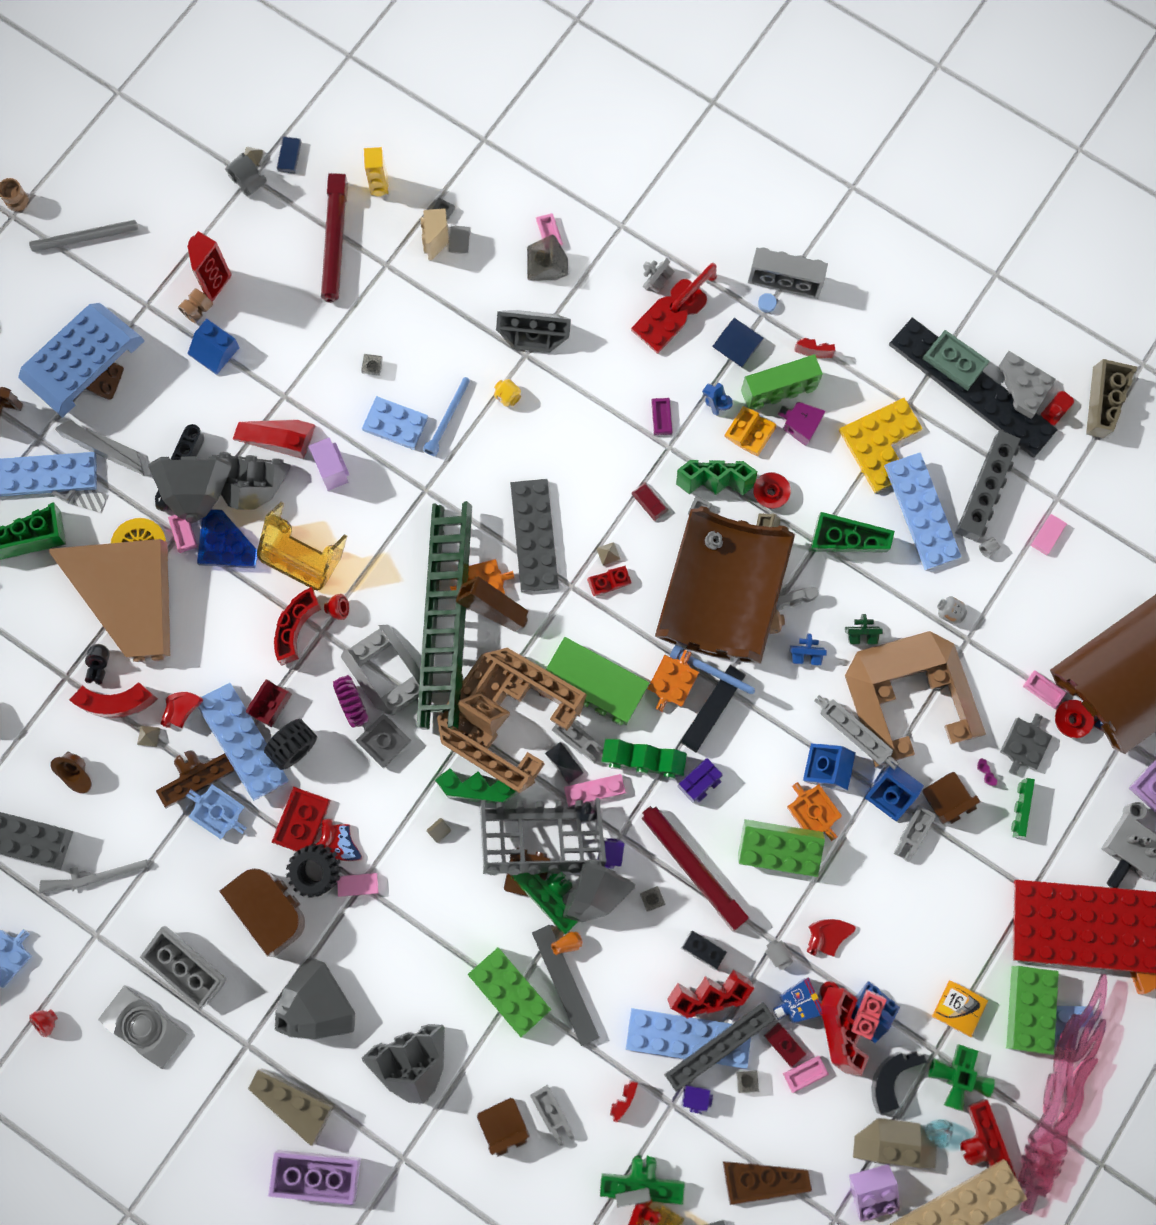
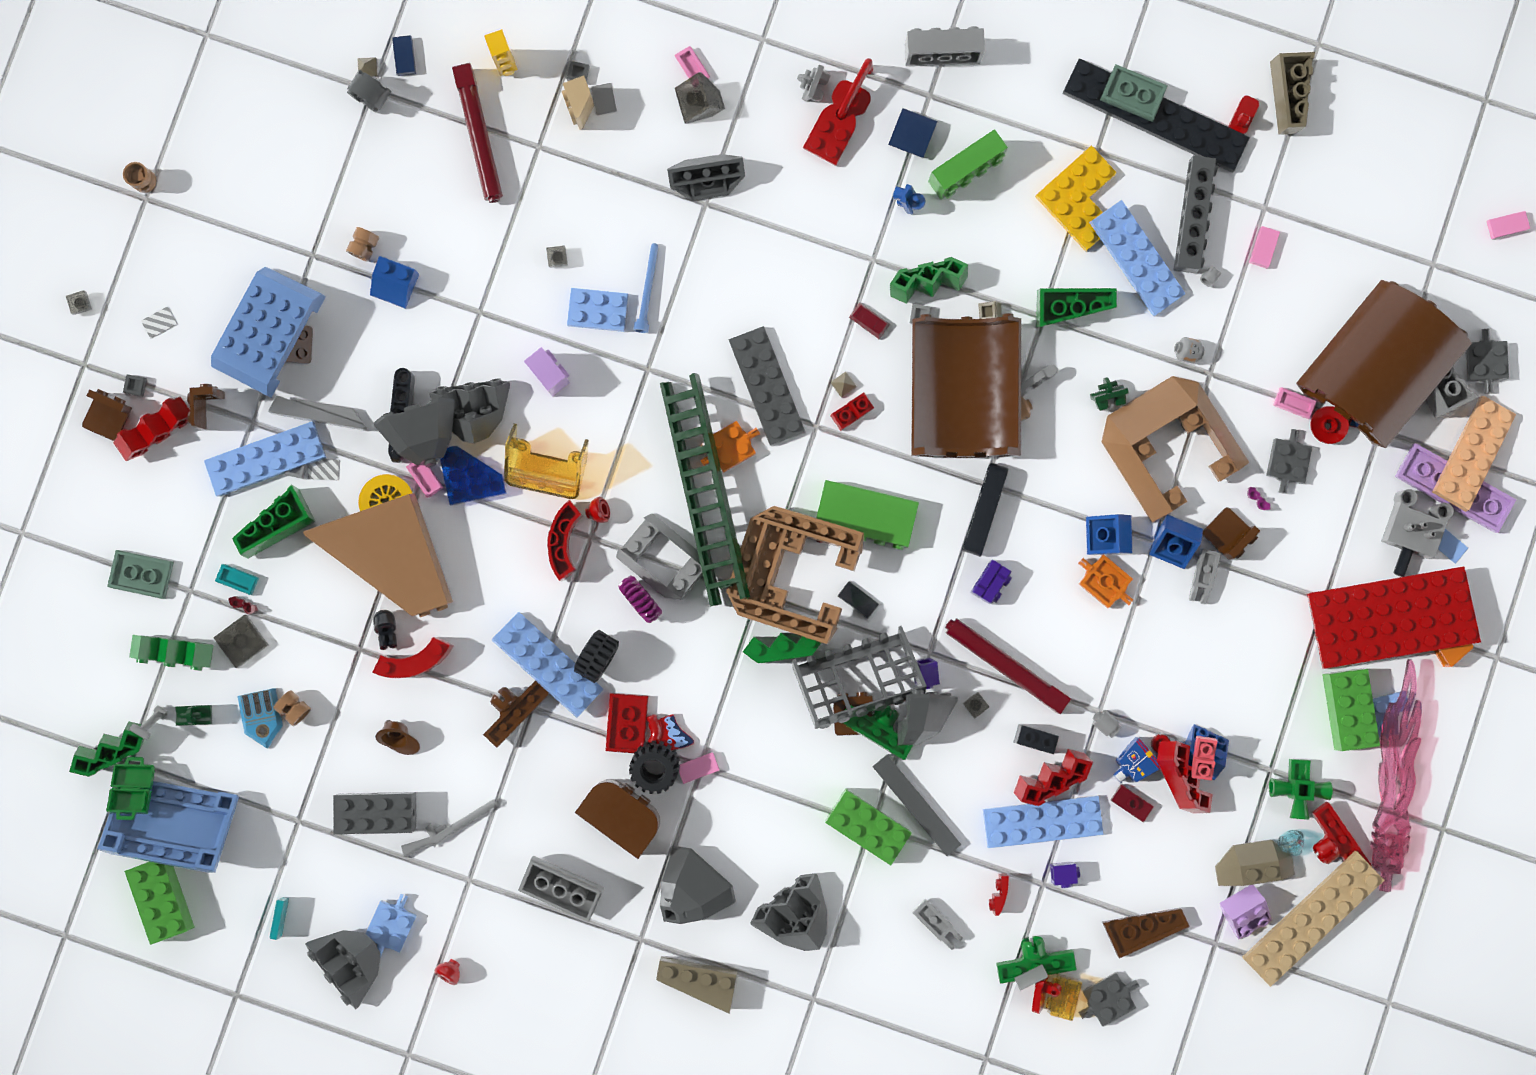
camera: 15 degrees left, 10 degrees up
(83, 235) = (224, 200): light grey axle -> none
(142, 1027) = (540, 950): light grey slope -> none
(148, 736) = (457, 683): dark tan slope -> none
(179, 707) = (479, 649): red arm -> none
(208, 264) = (365, 201): red slope -> none
(216, 811) = (545, 737): light blue plate -> none
(268, 703) = (562, 621): dark red bracket -> none
(281, 436) = (491, 353): red wedge -> none
(314, 1177) = (739, 1038): lavender brick -> none
(383, 740) = (681, 626): flat silver plate -> none
(438, 830) = (759, 696): dark tan slope -> none
(483, 713) = (770, 575): medium nougat slope -> none
(492, 604) = (748, 468): reddish brown slope -> none
(503, 1127) = (896, 947): reddish brown bracket -> none
(507, 392) = (699, 248): yellow head -> none
(570, 942) = (909, 767): orange cone -> none
(579, 740) = (867, 575): light grey hinge -> none
(586, 812) = (893, 644): black tile -> none
(598, 788) = (894, 617): bright pink plate -> none
(644, 758) = (933, 576): green brick -> none
(661, 416) = (857, 230): magenta tile -> none
(673, 680) = (940, 493): orange plate -> none
(677, 652) = (939, 465): medium blue piece -> none
(709, 540) = (938, 344): light grey plate -> none
(719, 1046) = (1074, 822): dark grey tile -> none
(747, 1081) = (1106, 845): clear smoke plate -> none
(750, 431) = (948, 221): light orange slope -> none
(767, 302) = (930, 82): light blue tile -> none
(776, 483) = (992, 271): red dish -> none
(781, 848) = (1083, 625): bright green brick -> none
(801, 421) = (997, 198): magenta torso -> none
(805, 1074) = (1157, 824): bright pink tile -> none
(808, 347) = (985, 119): red slope -> none
(816, 652) = (1069, 428): blue hips -> none
(828, 935) = (1146, 693): red arm -> none
(856, 732) = (1127, 495): light grey plate -> none
(885, 1077) = (1231, 807): black arch -> none
(960, 1008) = (1284, 726): slope -> none
(1022, 808) = (1300, 524): green plate -> none
(1025, 383) = (1207, 98): light grey plate -> none

